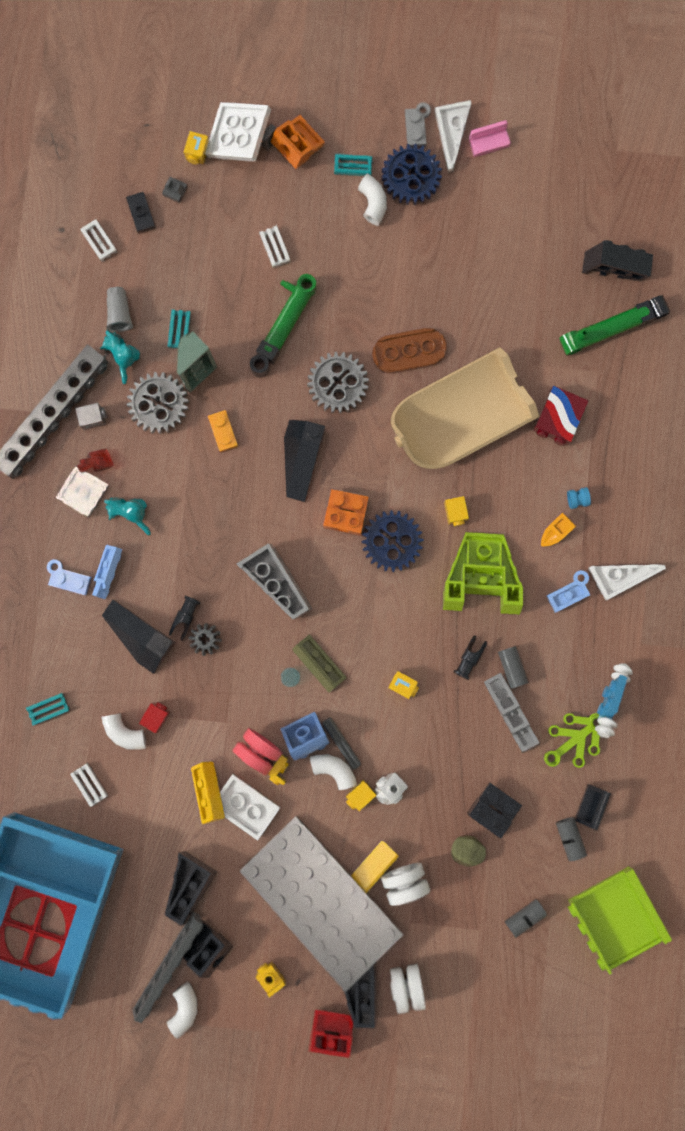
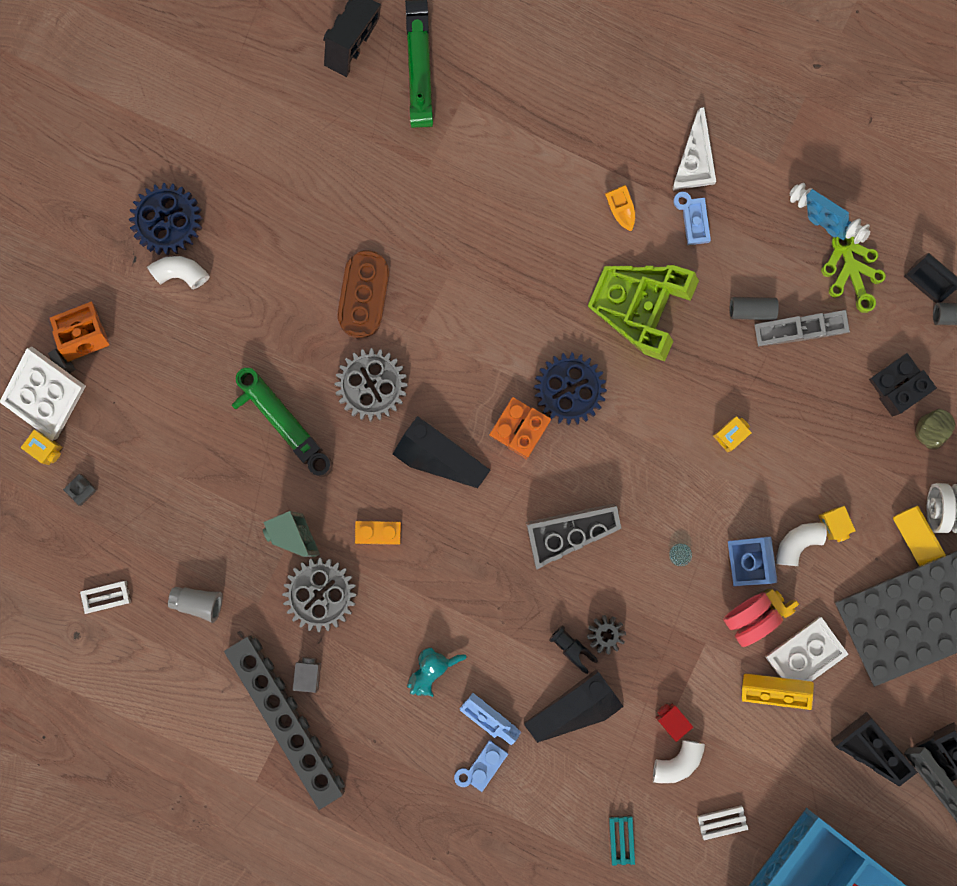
camera: 75 degrees left, 0 degrees up
(82, 492) = (389, 715): clear smoke plate -> none
(98, 459) = (360, 685): clear red plate -> none
(123, 353) = (249, 614): teal animal -> none
(140, 212) = (91, 537): black plate -> none
(180, 314) = (225, 533): teal tile -> none
(269, 232) = (170, 400): white tile -> none
(319, 663) = (675, 517): olive slope -> none
(341, 743) = (772, 524): dark grey axle -> none
(358, 171) = (138, 281): teal tile -> none
(390, 789) = (841, 488): white brick -> none
(416, 125) = (111, 195): light grey hinge -> none
(451, 125) = (125, 155): white wing -> none
(456, 511) = (562, 307): yellow brick -> none
(462, 412) = (456, 259): tan panel -> none
(469, 659) = (729, 352): black piece -> none
(489, 138) = (159, 120): bright pink panel -> none
(560, 416) = (498, 156): panel -> none
(579, 497) = (594, 171): dark azure wheel -> none

